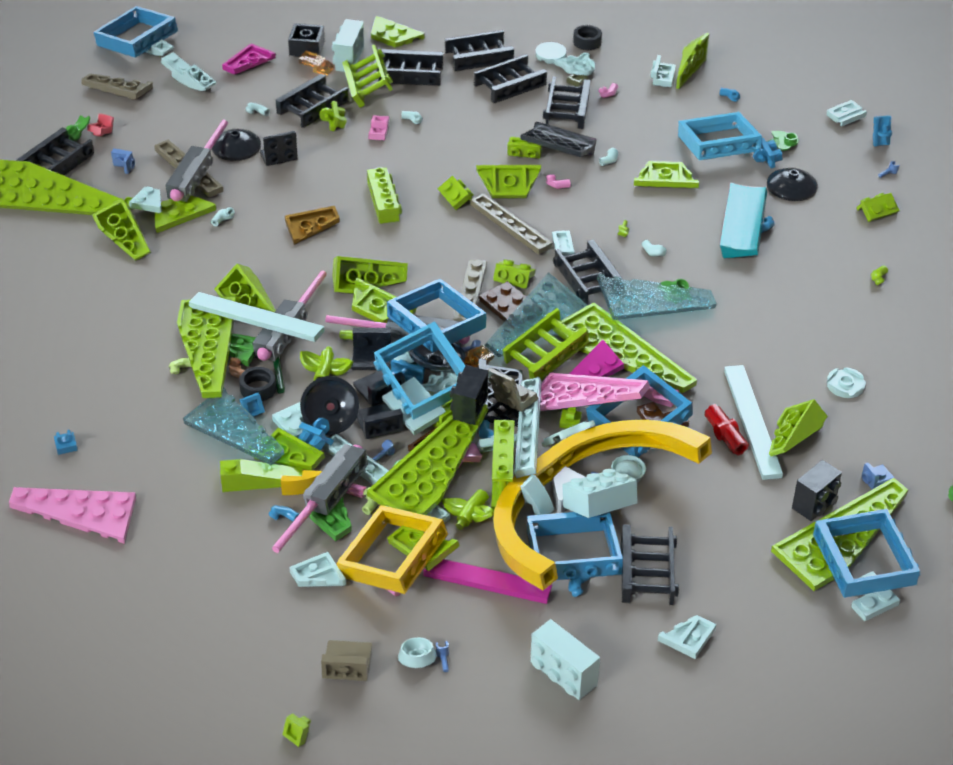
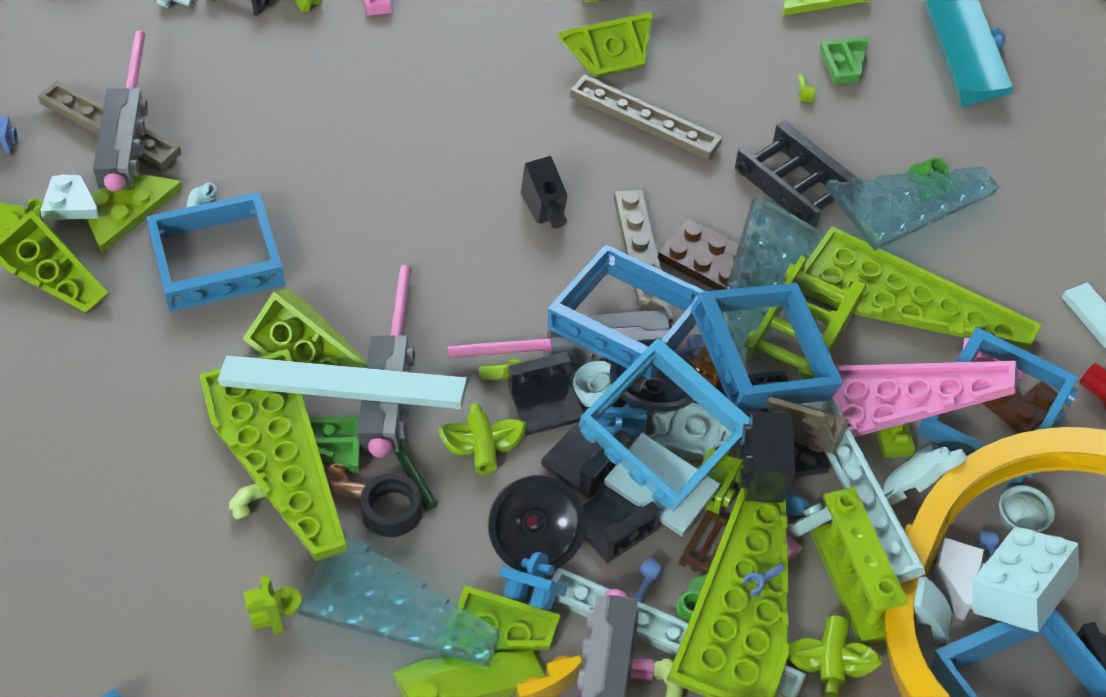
camera: 20 degrees left, 10 degrees up
(170, 412) = (266, 606): none -> lime hips
(217, 259) = (224, 283): none -> dark azure window
(237, 145) = (170, 66): black dish -> none
(253, 404) = (402, 548): dark azure tile -> none
(279, 148) = (244, 63): black bracket -> none
(289, 419) = (471, 559): light aqua plate -> none
(311, 222) = (344, 181): pearl gold wing -> none
(371, 301) = (509, 304): lime wing -> none
(374, 272) = (463, 259): lime wedge -> none
(383, 195) = (436, 109): lime brick -> none
(423, 256) = (544, 192): none -> black torso
(436, 458) = (762, 579): none -> medium blue hand
(455, 193) = (540, 82): lime bracket -> none
(510, 320) = (729, 364): none -> dark azure window
(515, 274) = (690, 201): lime bracket -> none
(558, 184) = (674, 35): bright pink arm -> none
(563, 242) = (736, 133): light aqua plate -> none
(599, 362) = (893, 333): dark pink wing -> none
(653, 250) = (864, 116): light aqua arm -> none
(659, 216) = (844, 58): none -> bright green wing

